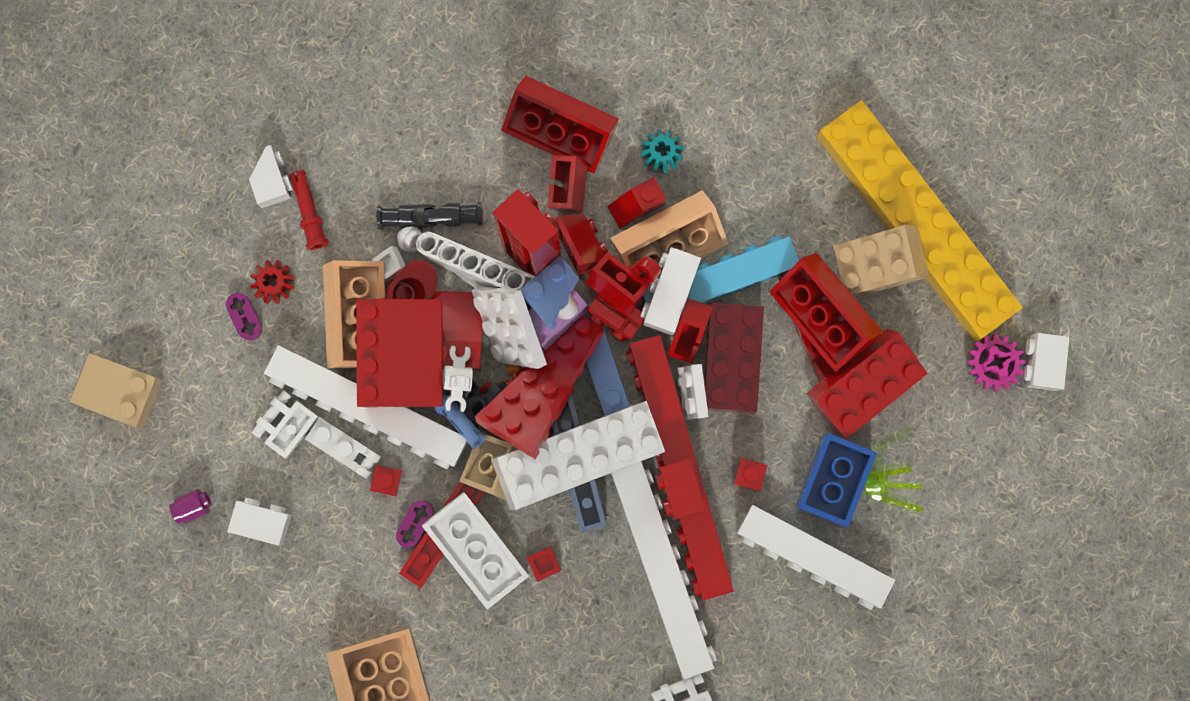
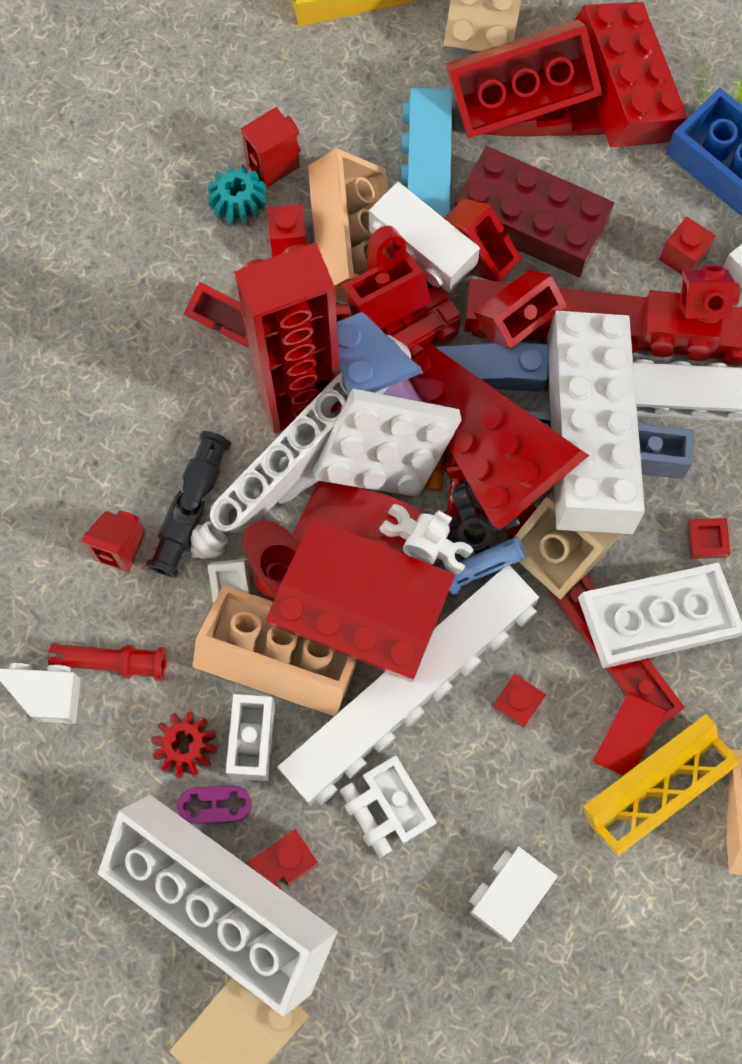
camera: 65 degrees left, 10 degrees down
(176, 343) = (217, 904): none -> white brick
(190, 506) = (451, 986): magenta brick -> none
(216, 370) = (285, 859): none -> red piece
(290, 321) = (250, 737): none -> white brick
(342, 447) = (450, 741): white plate -> none
(370, 583) = (653, 773): none -> yellow fence
(384, 179) = (114, 539): none -> red slope
(388, 558) = (629, 734): none -> red slope
(409, 520) = (600, 679): magenta beam -> none
(558, 123) = (143, 300): red slope -> none
(642, 376) = (520, 308): none -> red brick
(692, 392) = (562, 262): white plate -> none
(695, 498) = (708, 294): none -> red brick
(702, 160) = (271, 146): none -> red brick

